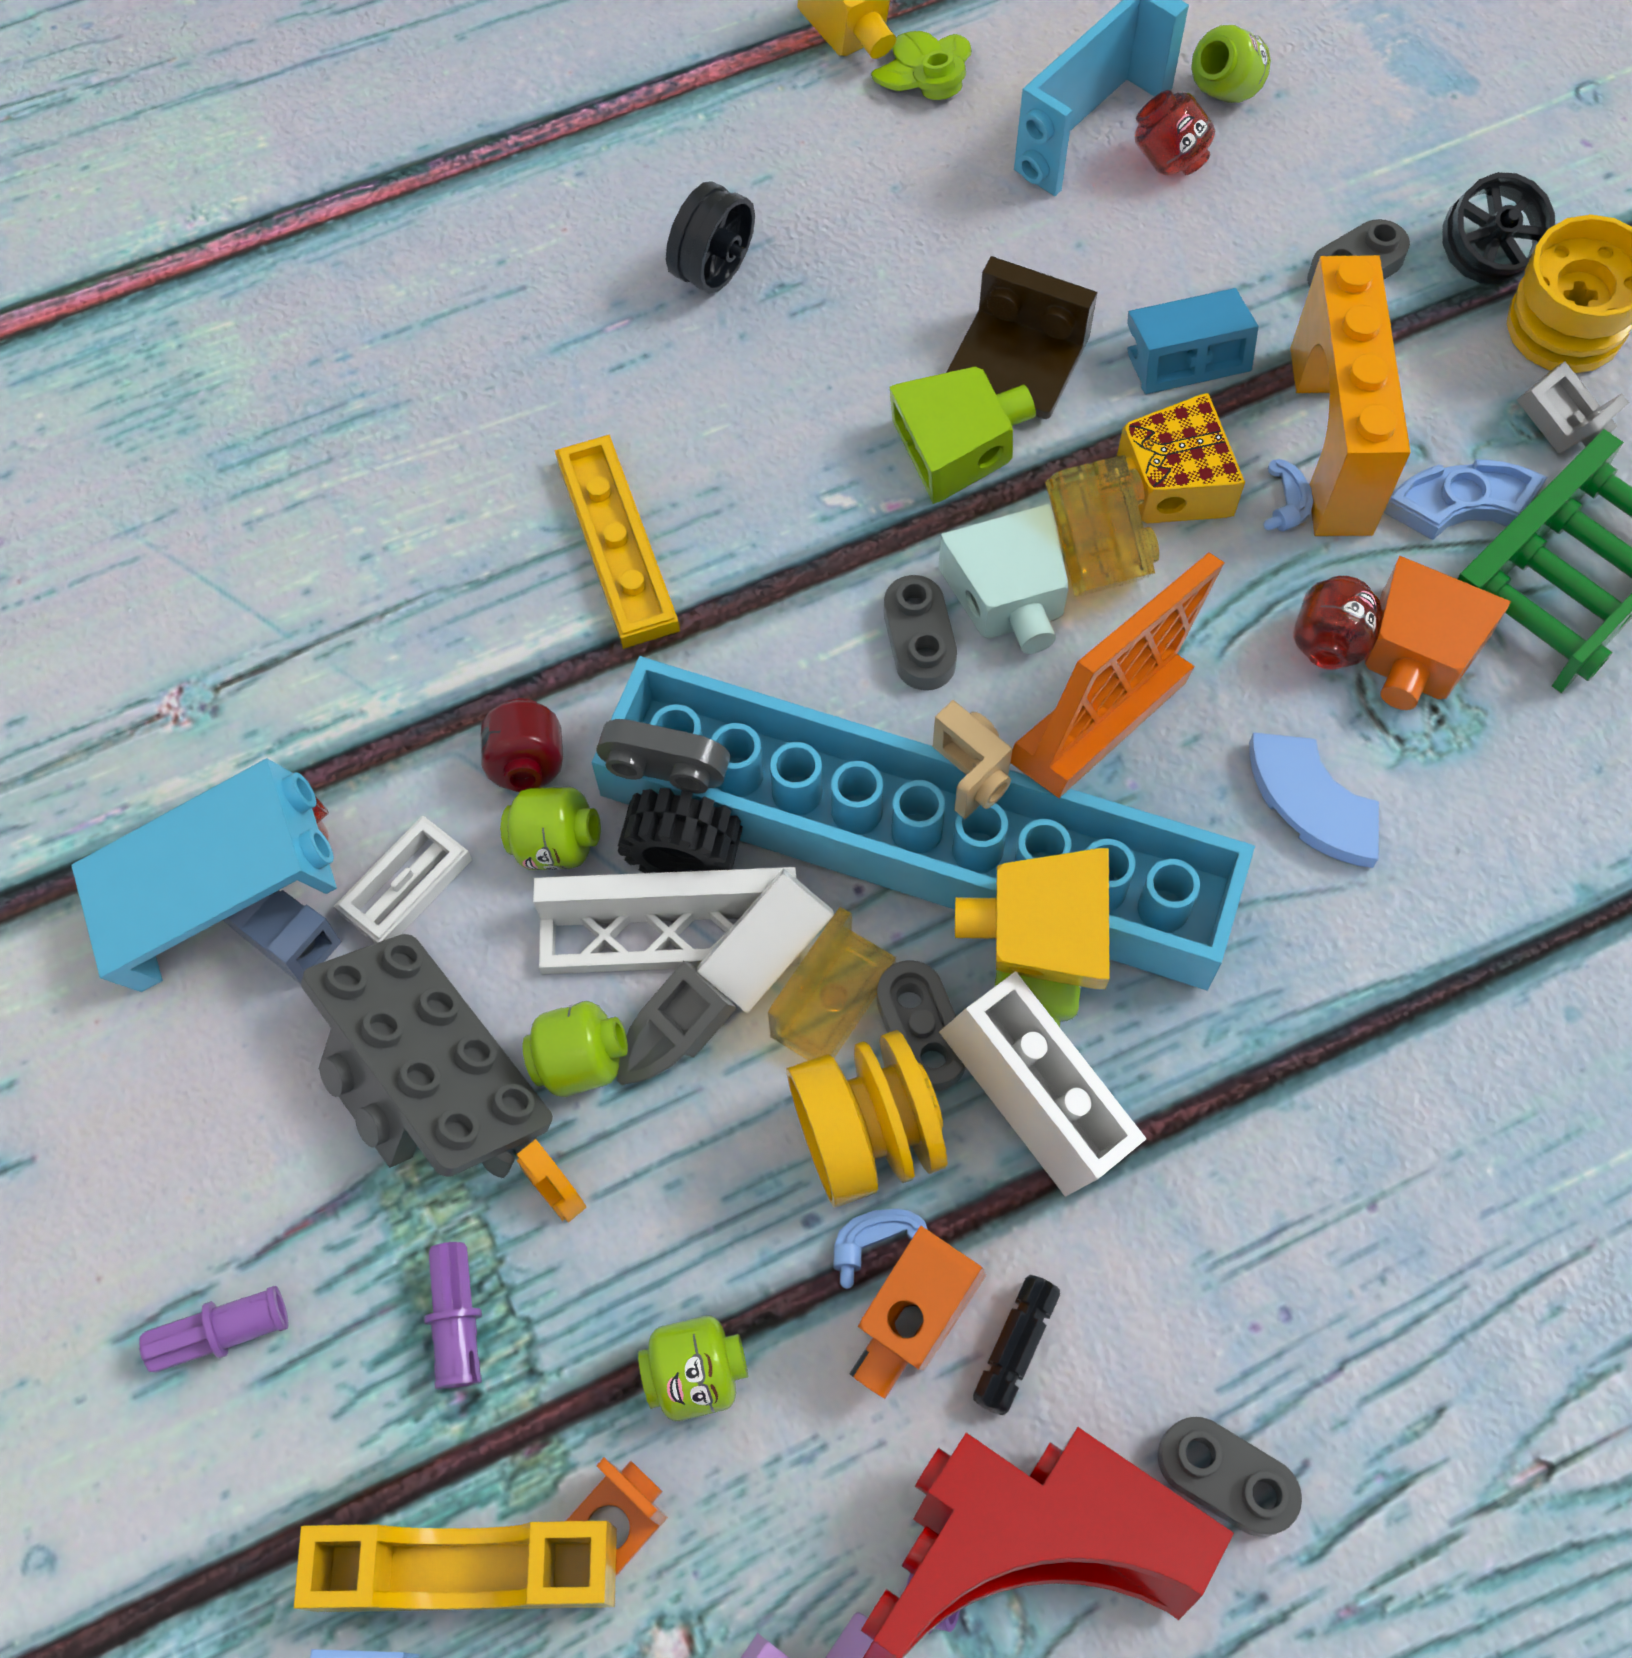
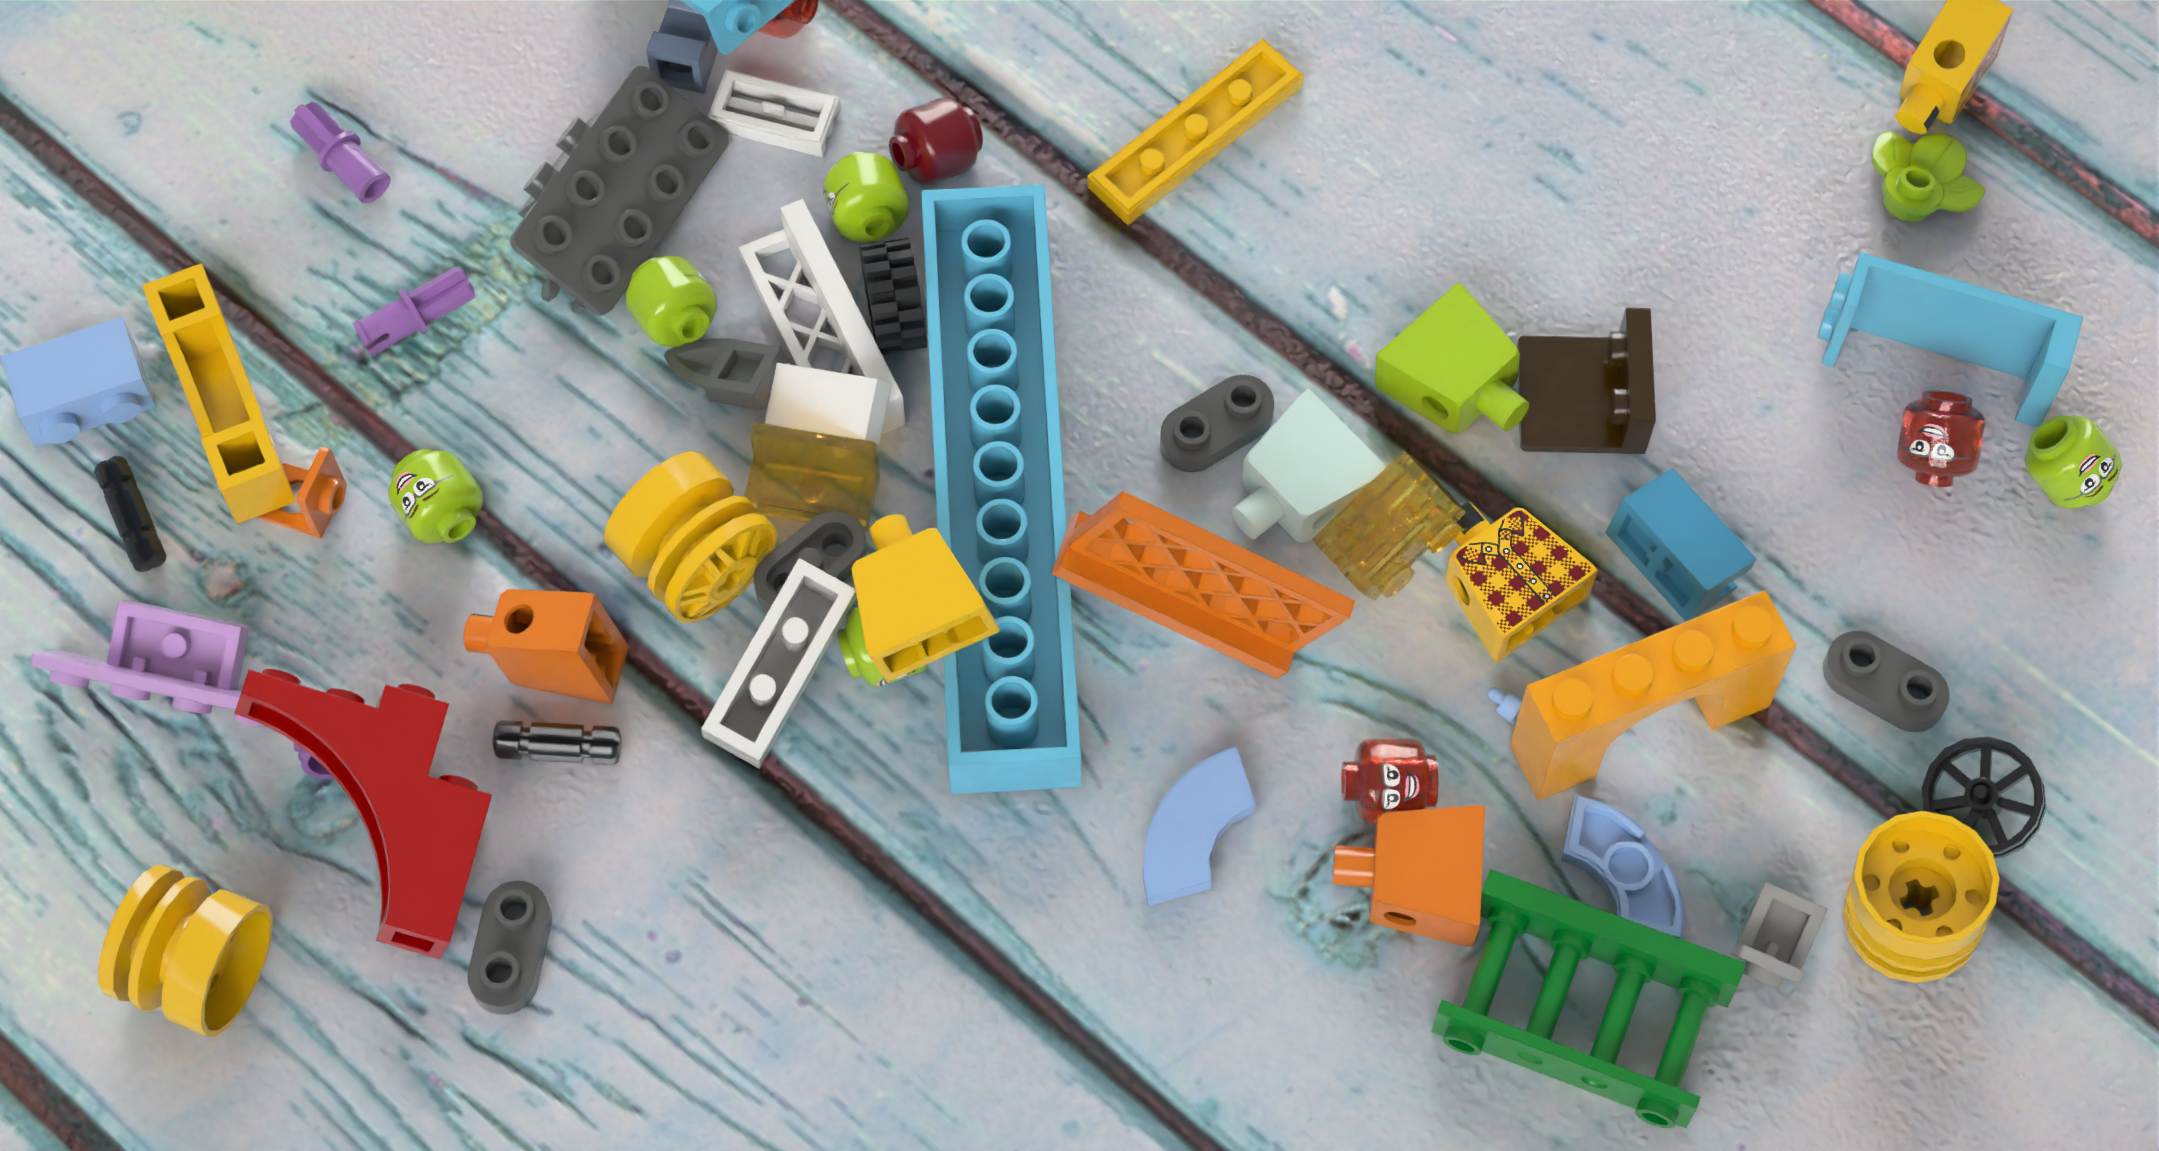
camera: 65 degrees right, 0 degrees up
(550, 1181) = (558, 332): light orange tile -> none
(662, 753) = (932, 212): dark grey plate -> none
(710, 237) = (1561, 60): black wheel -> none
(866, 1231) = (613, 596): light blue piece -> none
(978, 752) = (1061, 476): tan bracket -> none

